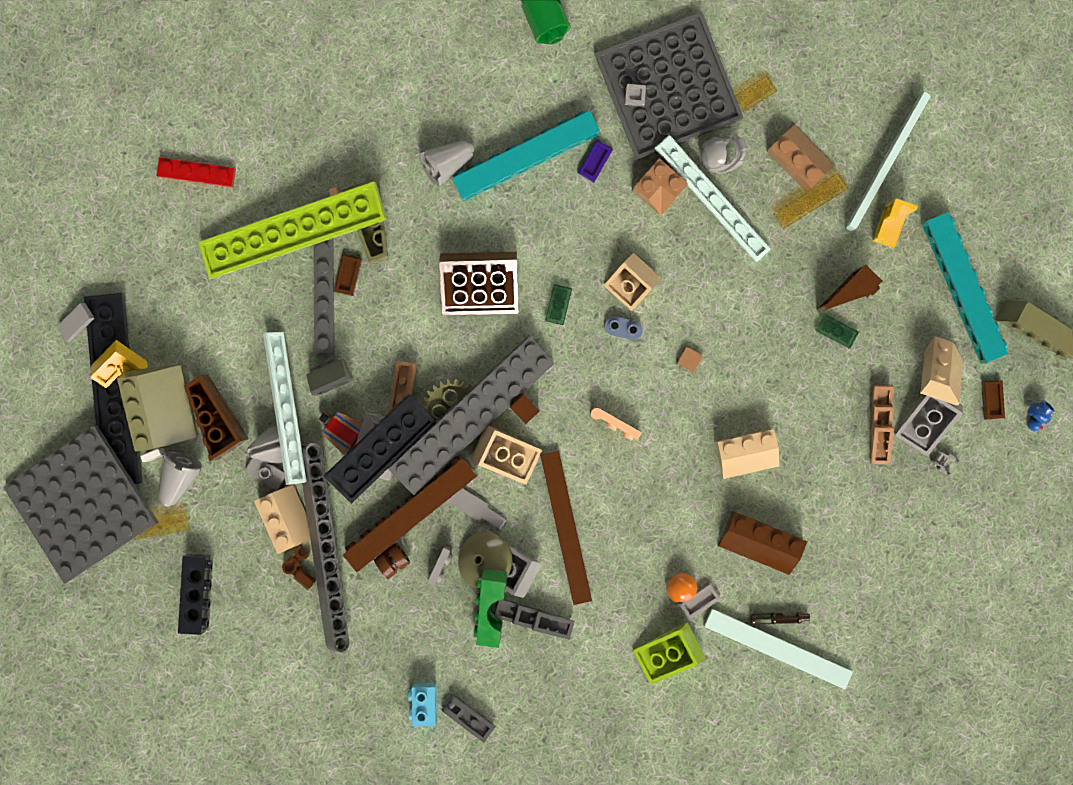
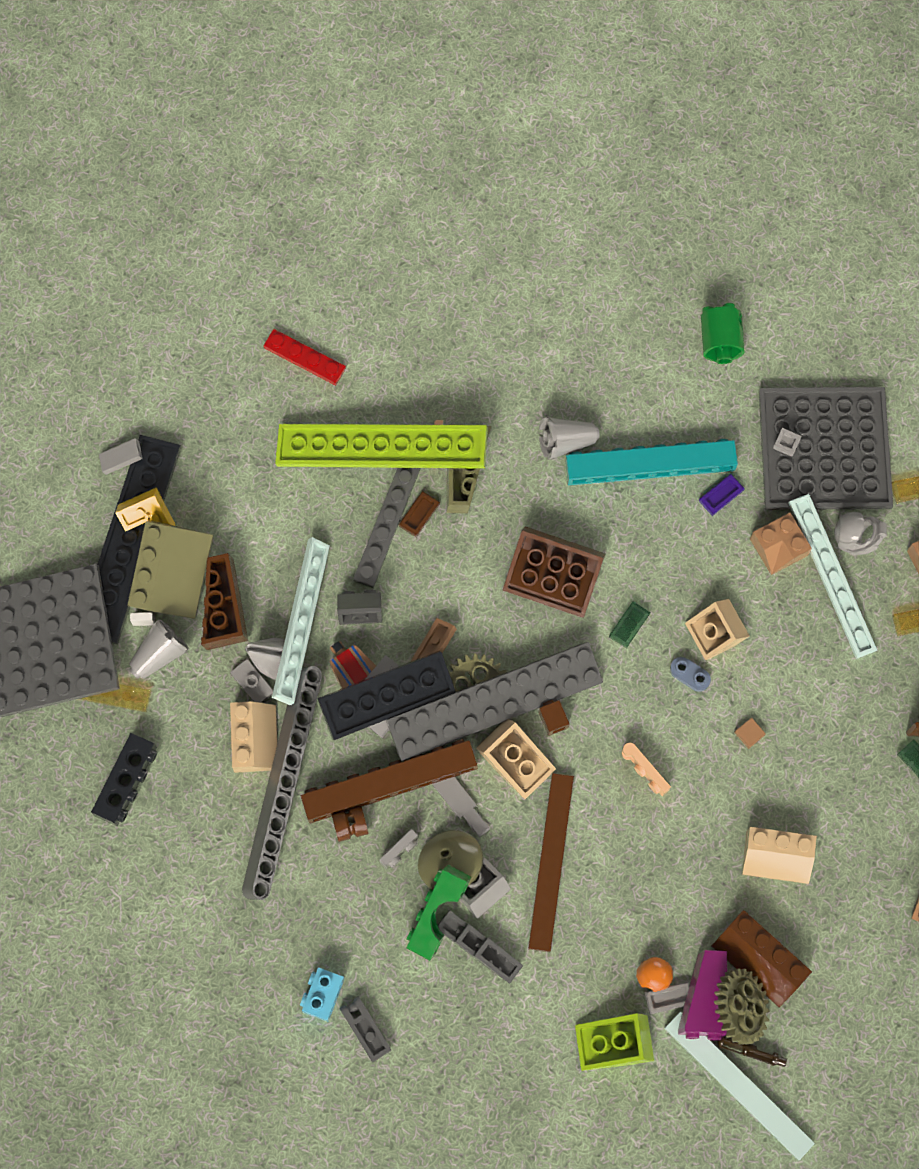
camera: 15 degrees right, 15 degrees down
(300, 575) = (238, 792): reddish brown bar -> none
(730, 593) = (699, 1008): none -> magenta slope
(760, 591) = (741, 1006): none -> olive gear

